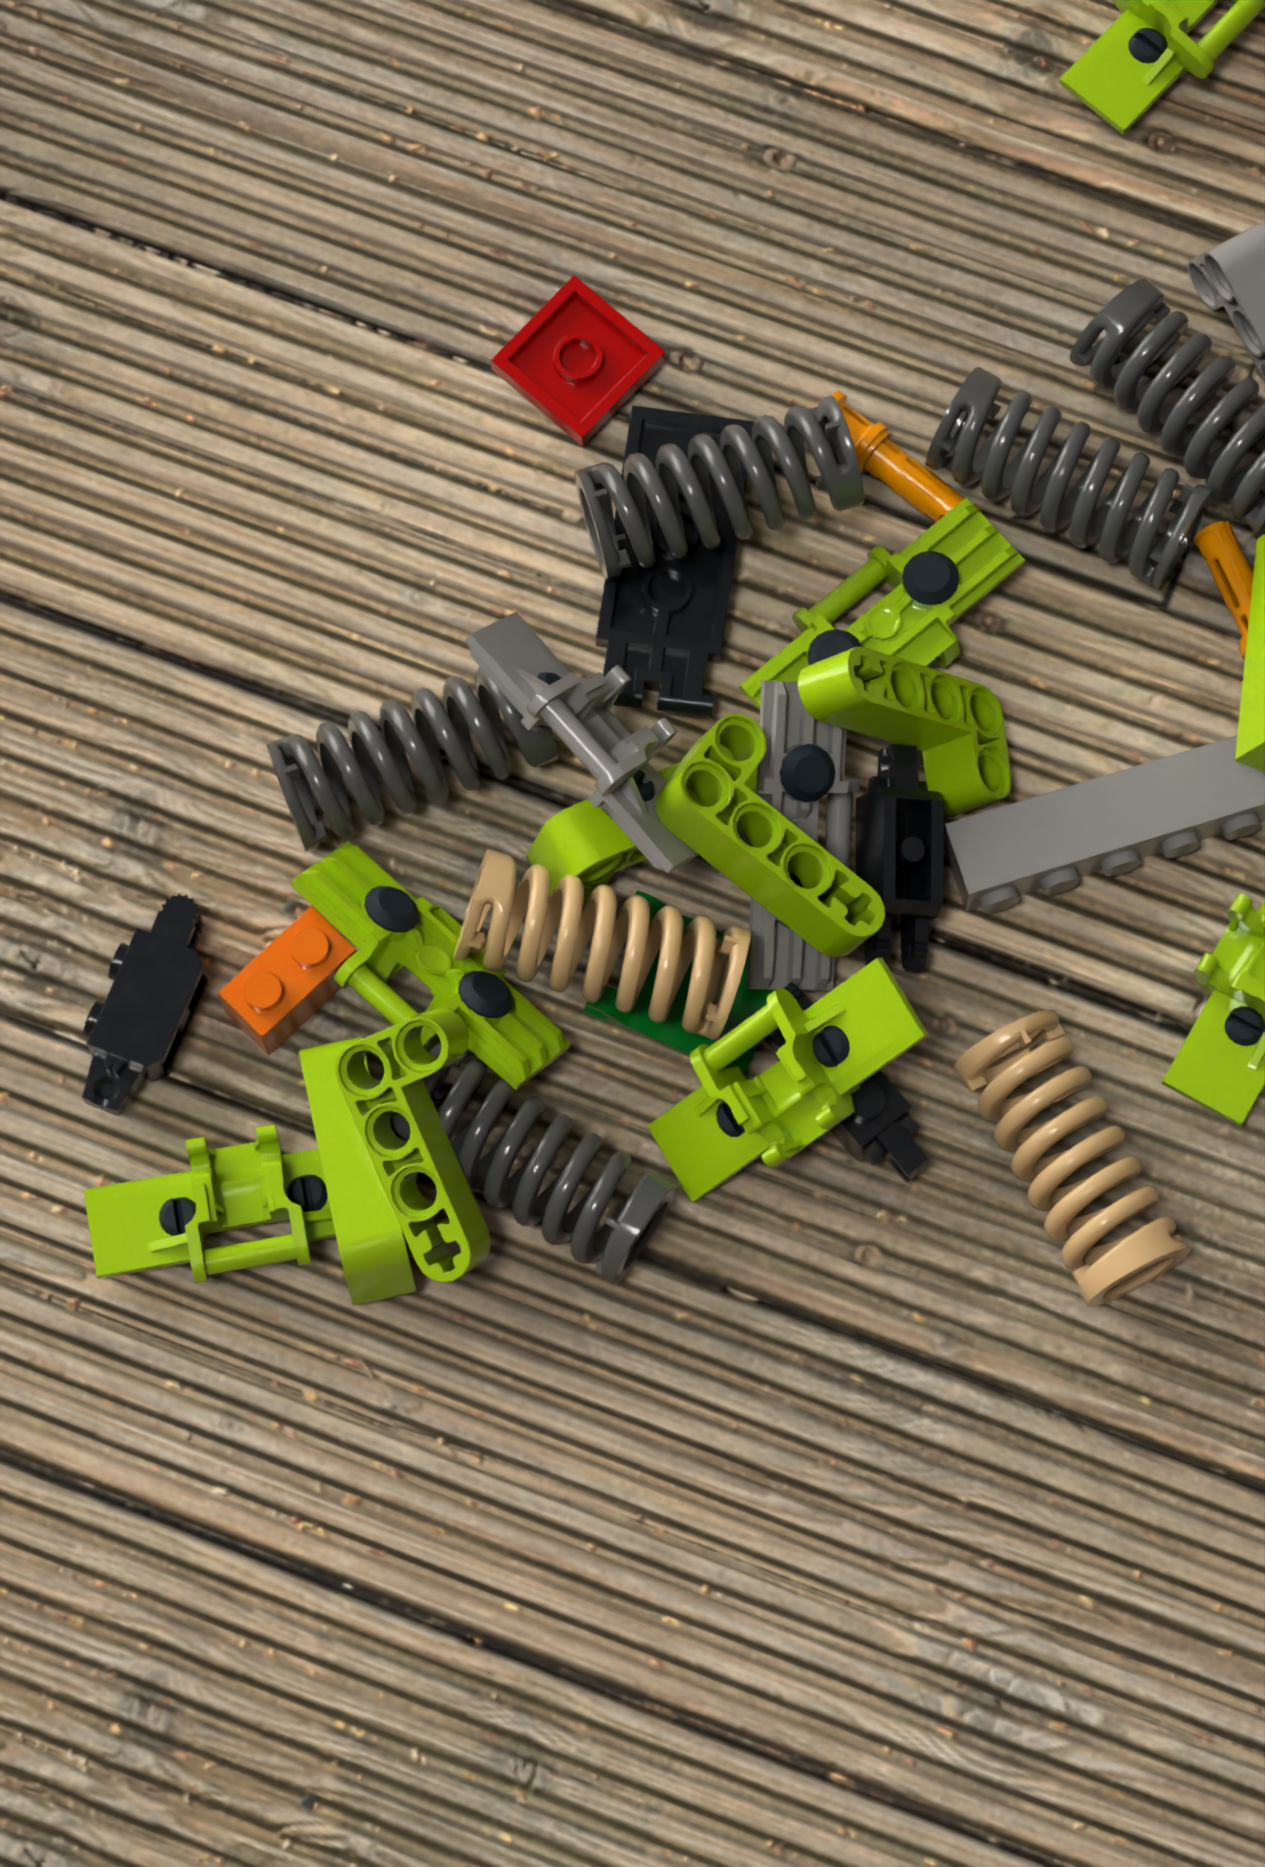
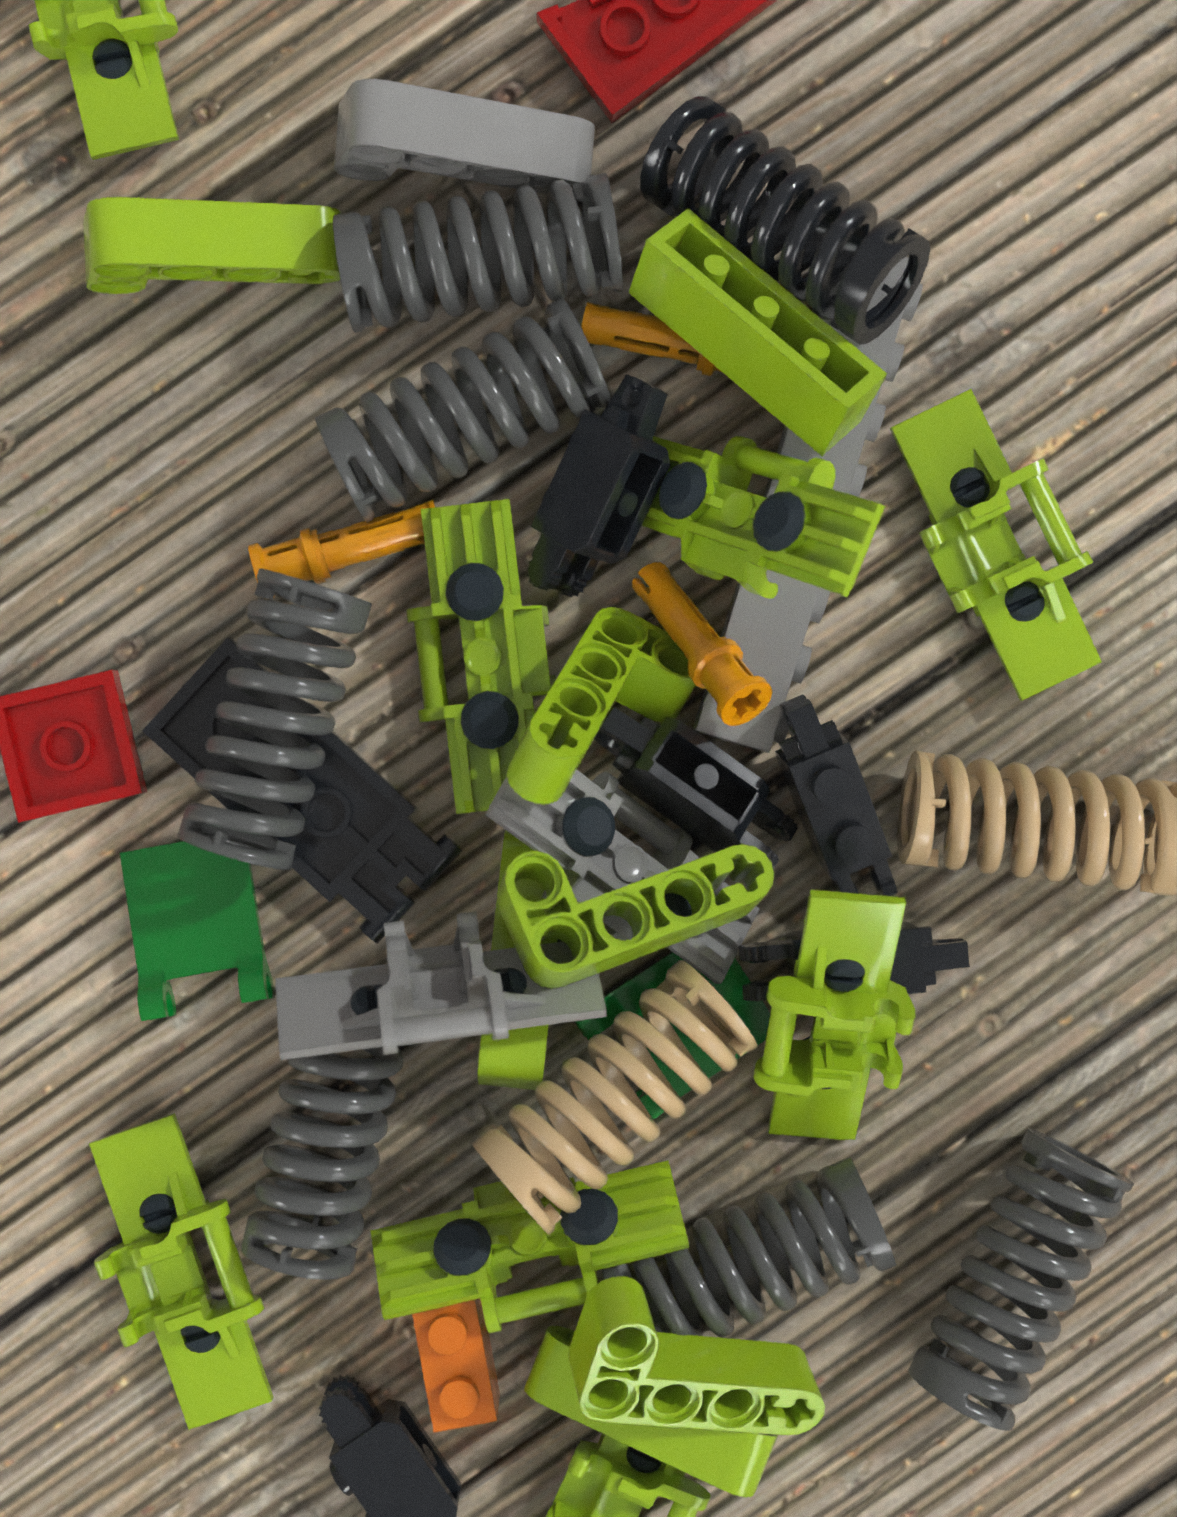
camera: 55 degrees left, 15 degrees up
(191, 708) = (163, 1281): none -> lime piece
(503, 544) = (192, 918): none -> green flag
(789, 1377) = (1101, 1198): none -> dark grey piece
(969, 970) = (832, 799): none -> black hinge
(1011, 790) = (712, 659): none -> light orange pin
(1054, 200) = (206, 241): none -> lime beam
(1082, 623) = (600, 489): none -> black hinge
(1145, 732) = (729, 532): none -> lime piece

